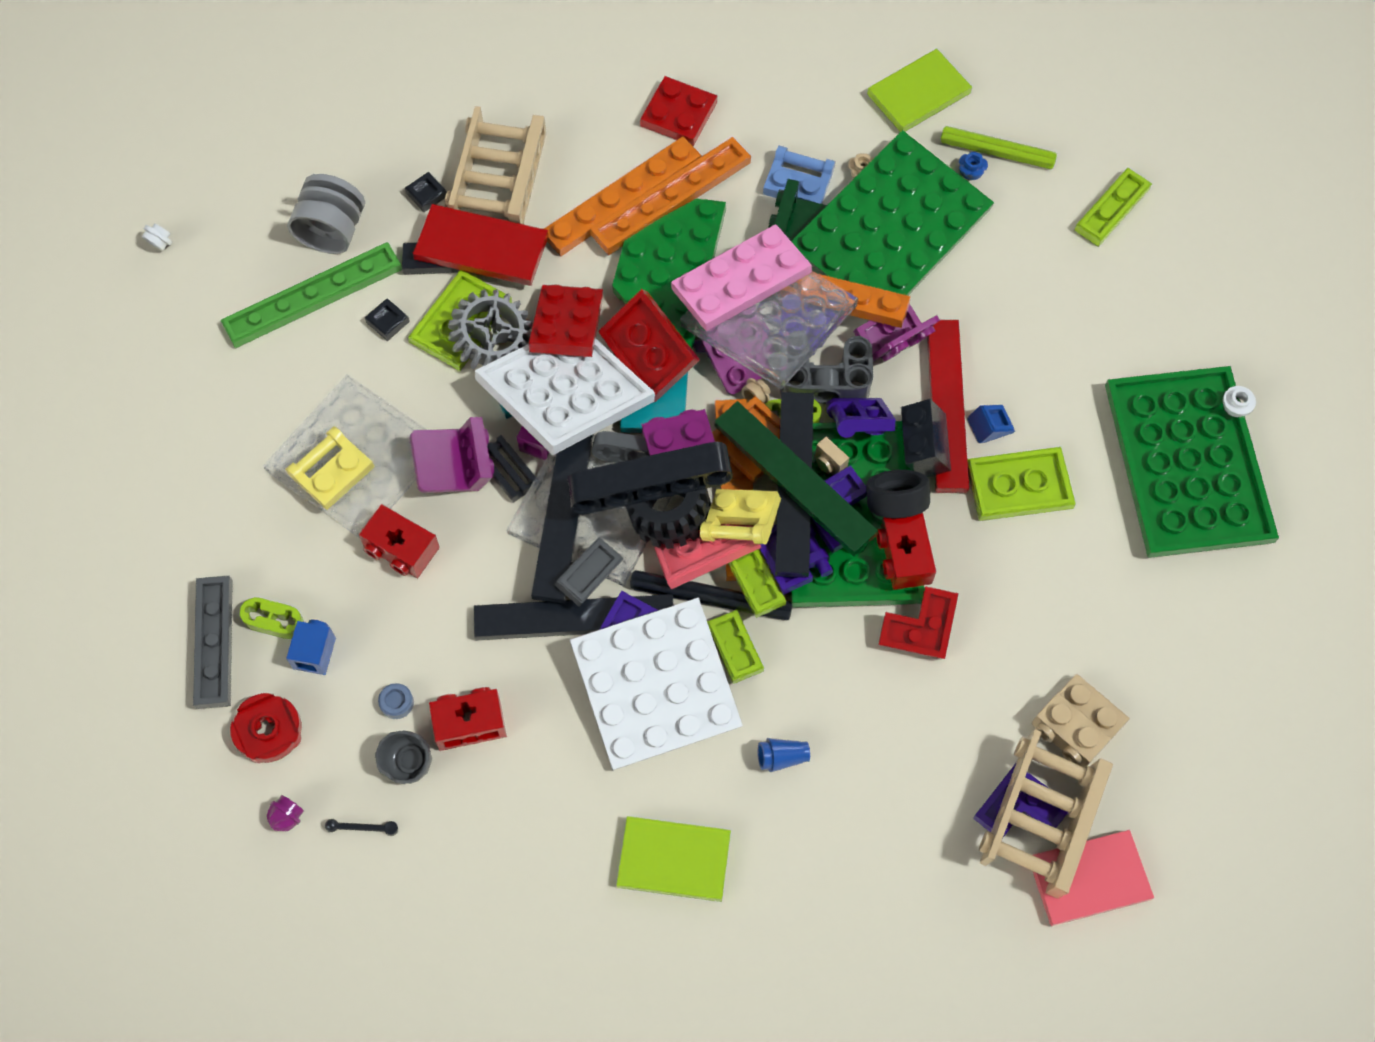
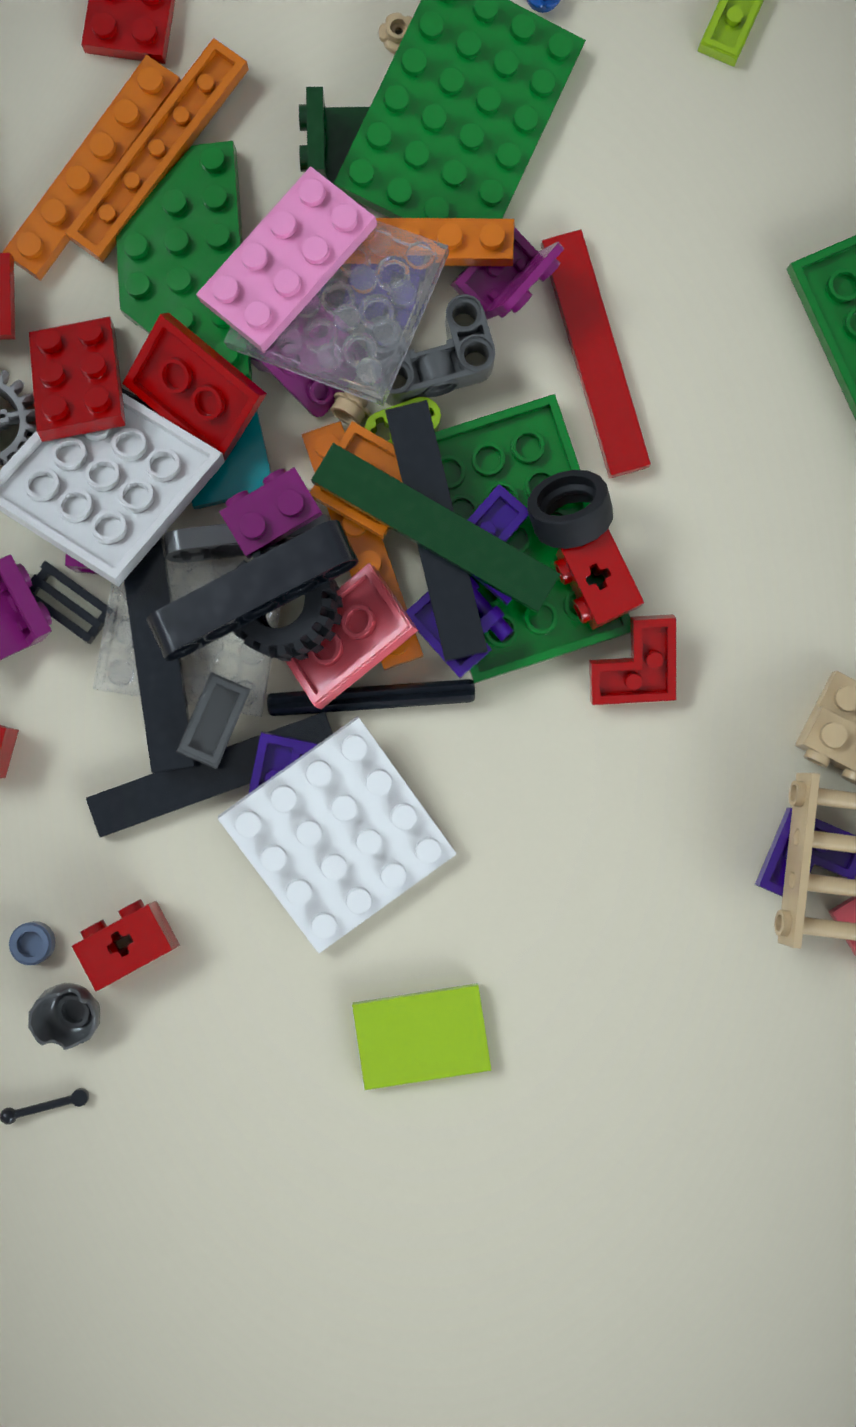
camera: 20 degrees left, 20 degrees up
(735, 647) = (419, 756): lime plate -> none
(741, 508) = (381, 586): light yellow plate -> none
(757, 583) = (426, 673): lime plate -> none
(781, 754) = (512, 875): blue cone -> none
(810, 186) = (339, 83): medium blue plate -> none
(830, 457) = (471, 480): tan plate -> none
(868, 416) = (505, 401): dark purple plate -> none
(925, 438) = (582, 415): black brick -> none
(990, 423) = (655, 364): blue slope -> none
(1020, 484) = (711, 437): lime tile -> none

